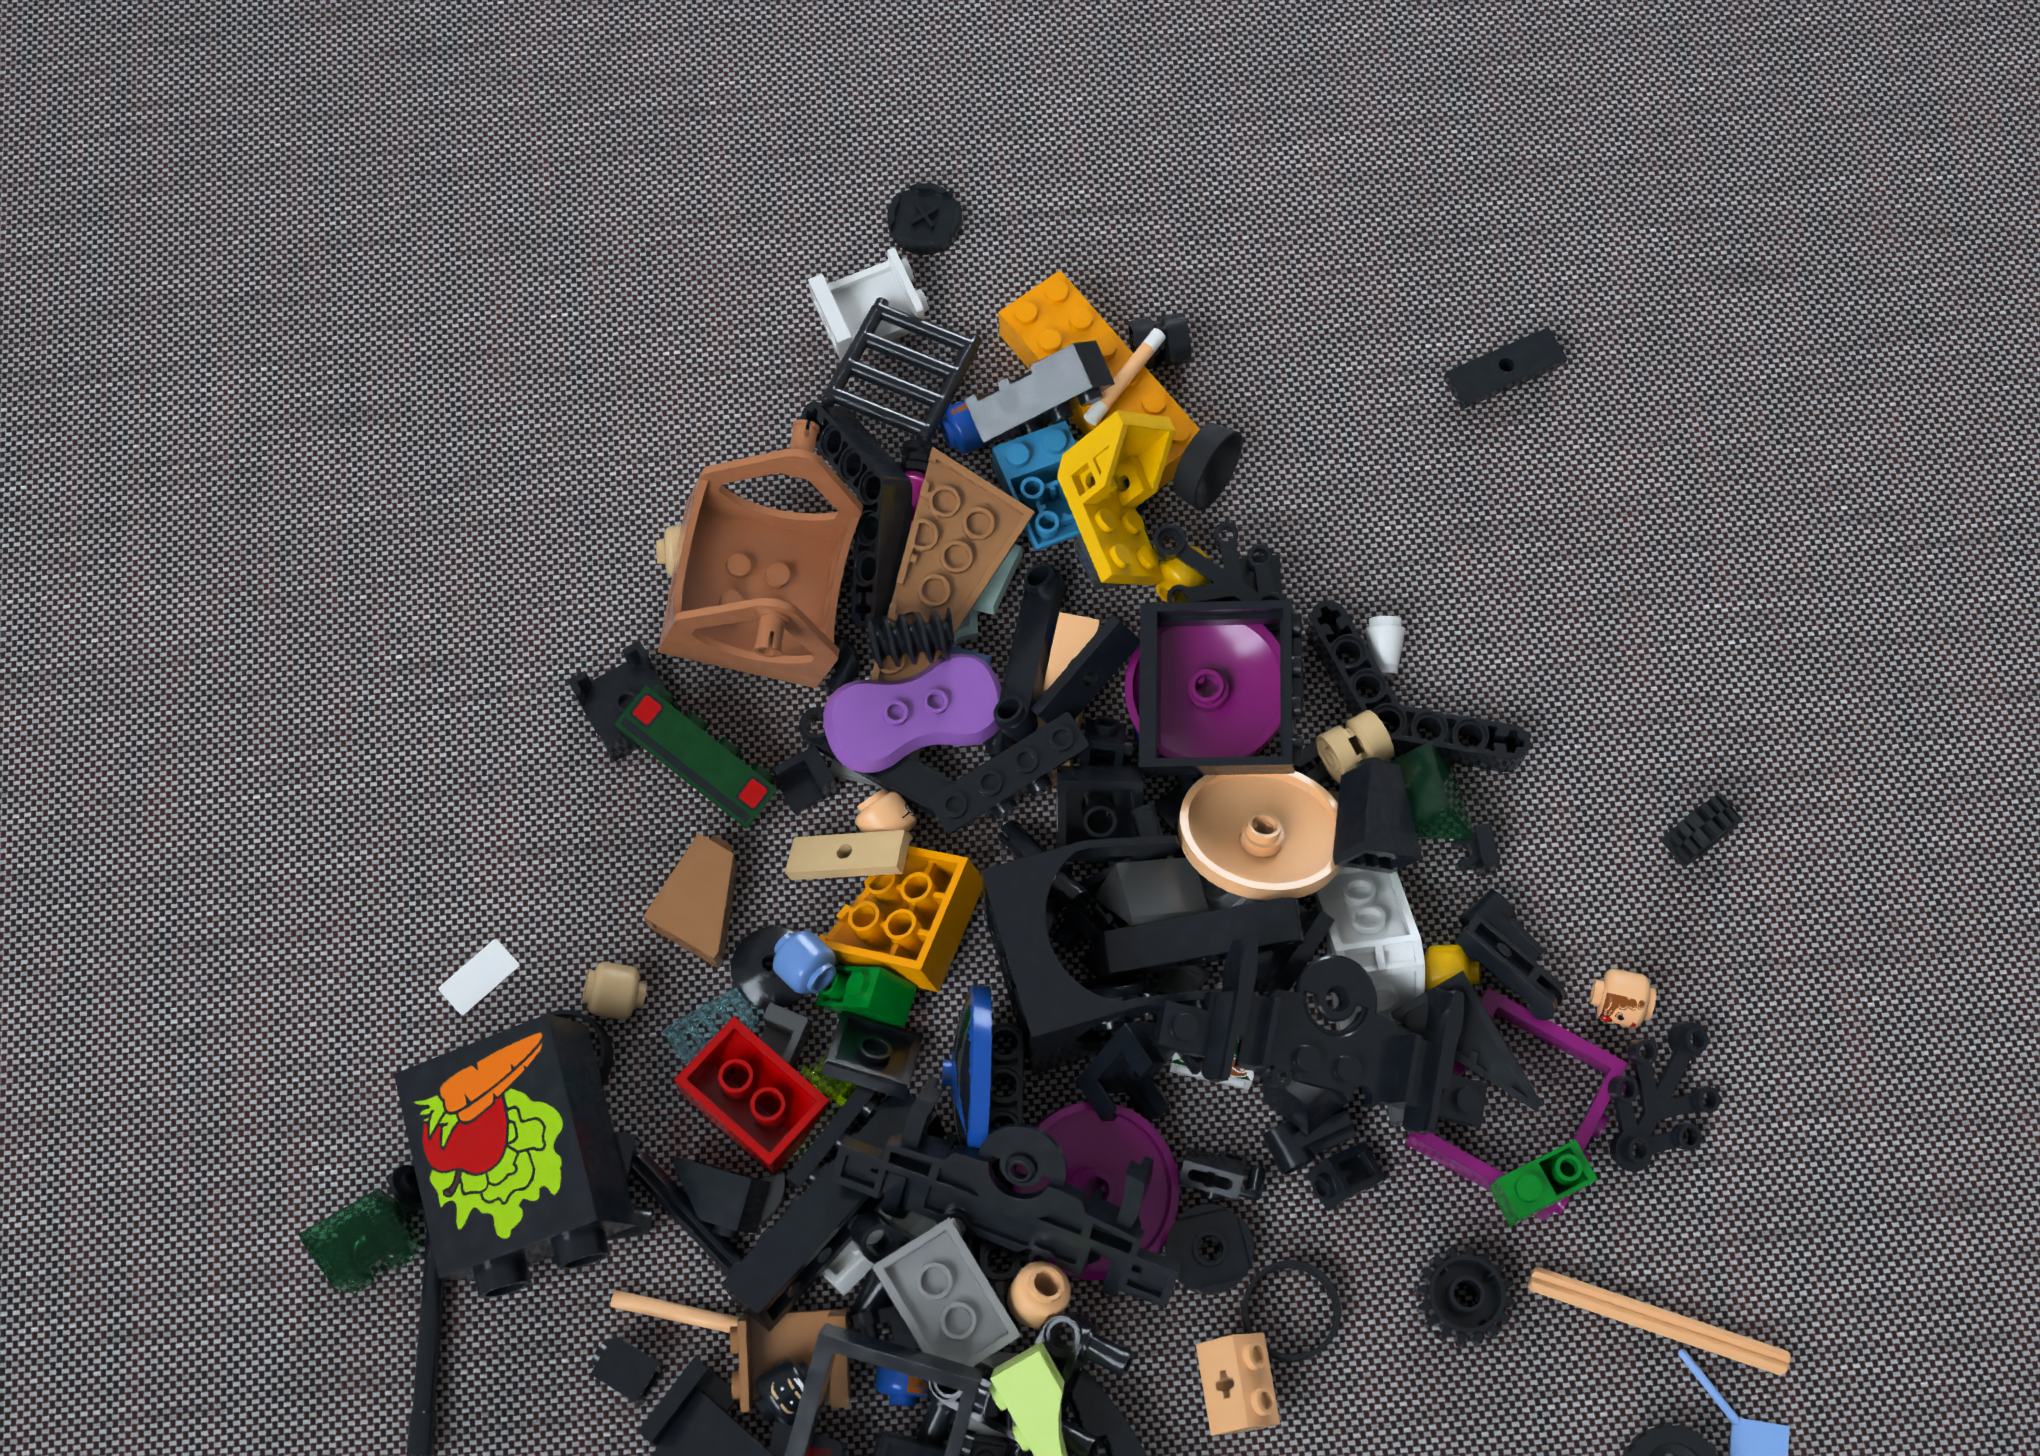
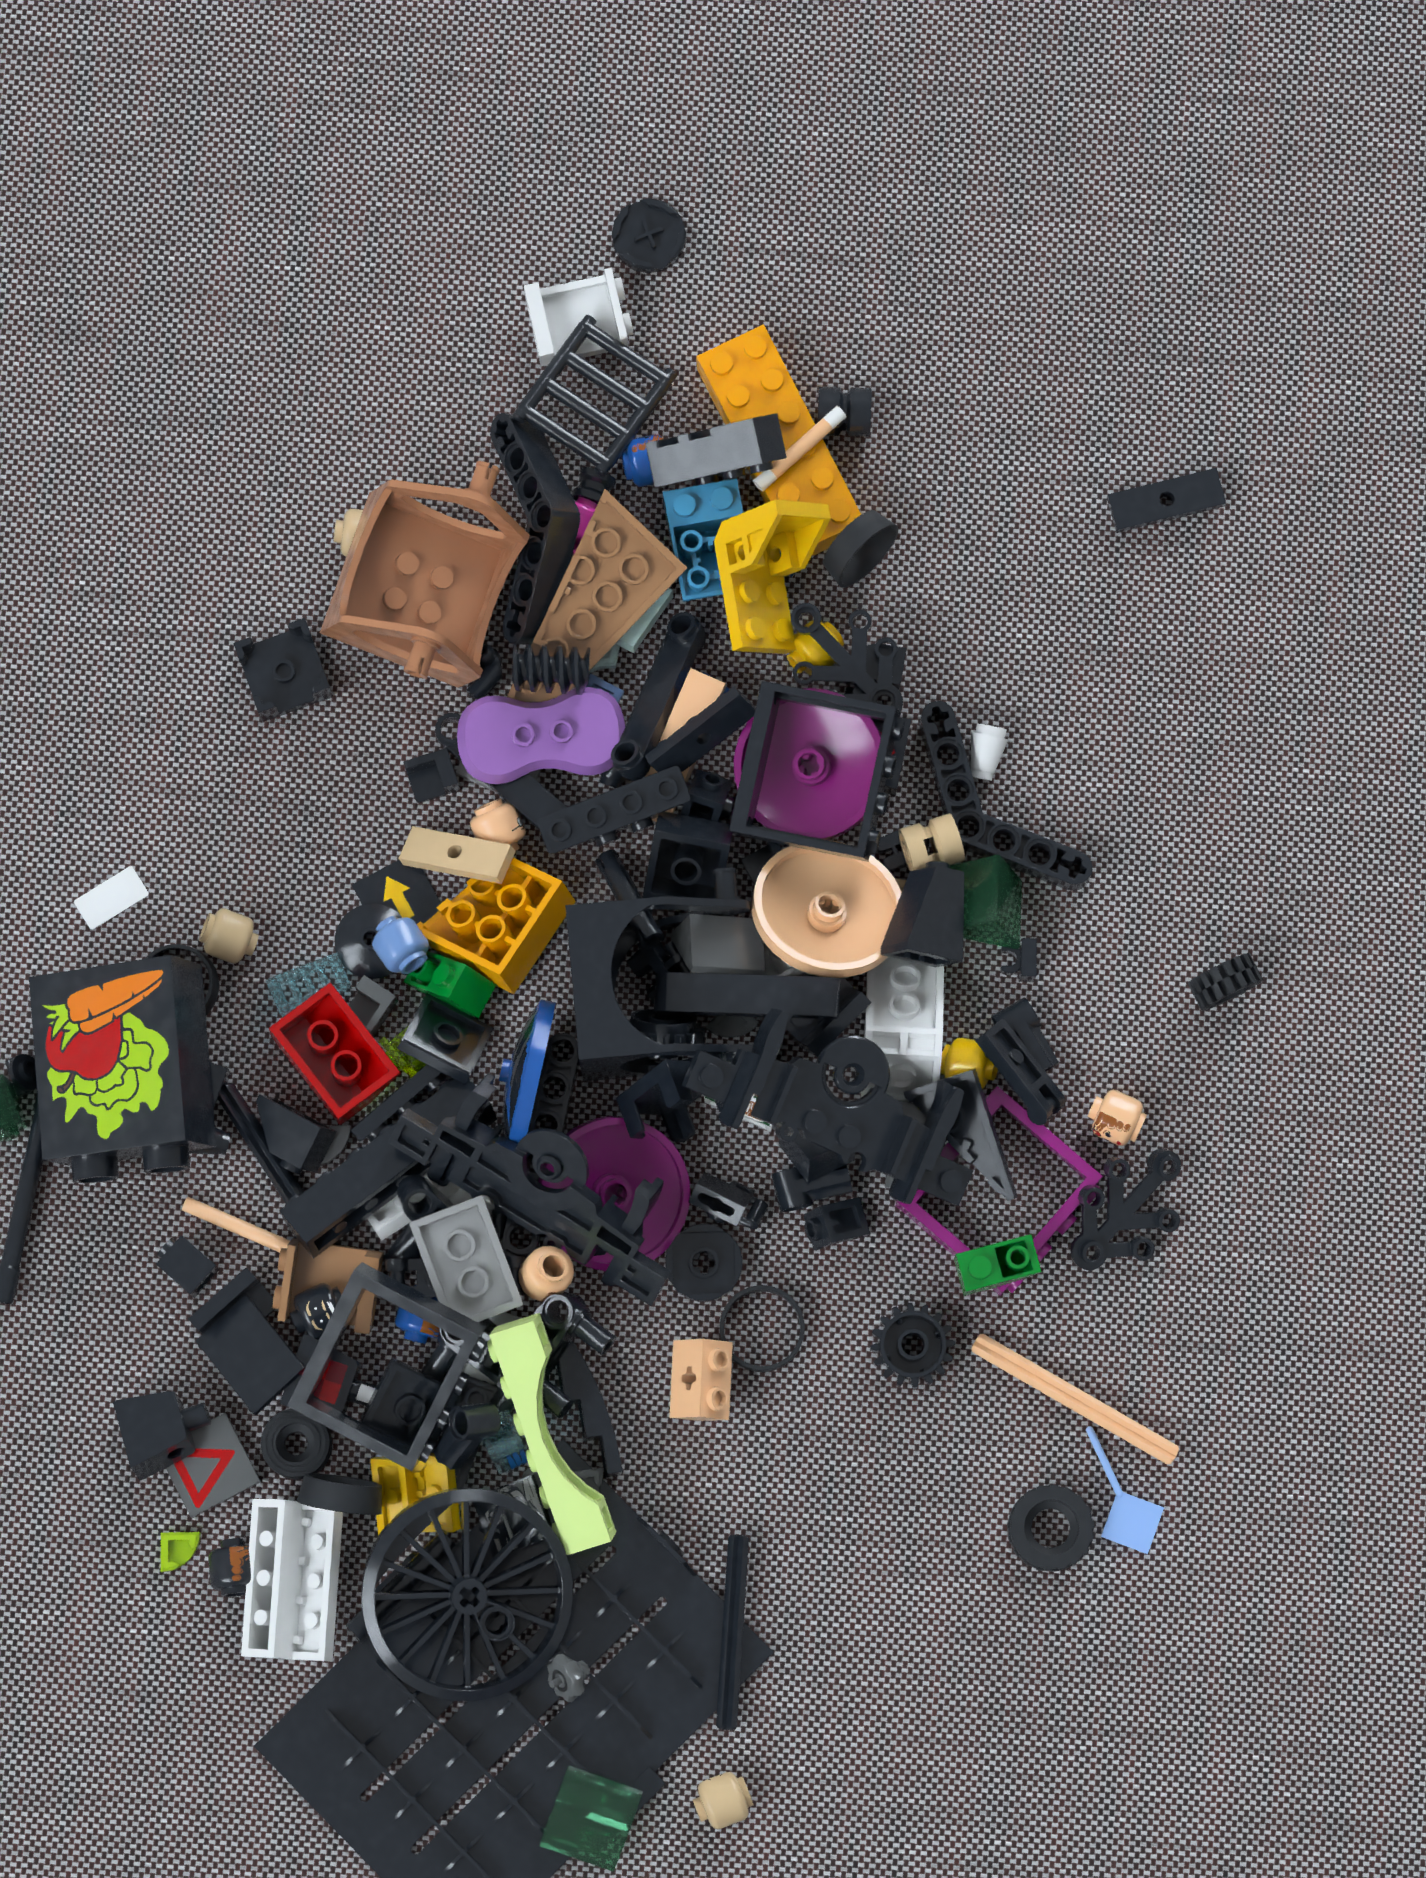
camera: 10 degrees right, 10 degrees up
(696, 756) = (337, 738): dark green brick -> none
(698, 900) = (317, 867): medium nougat slope -> none
(794, 906) = (400, 888): none -> black sticker

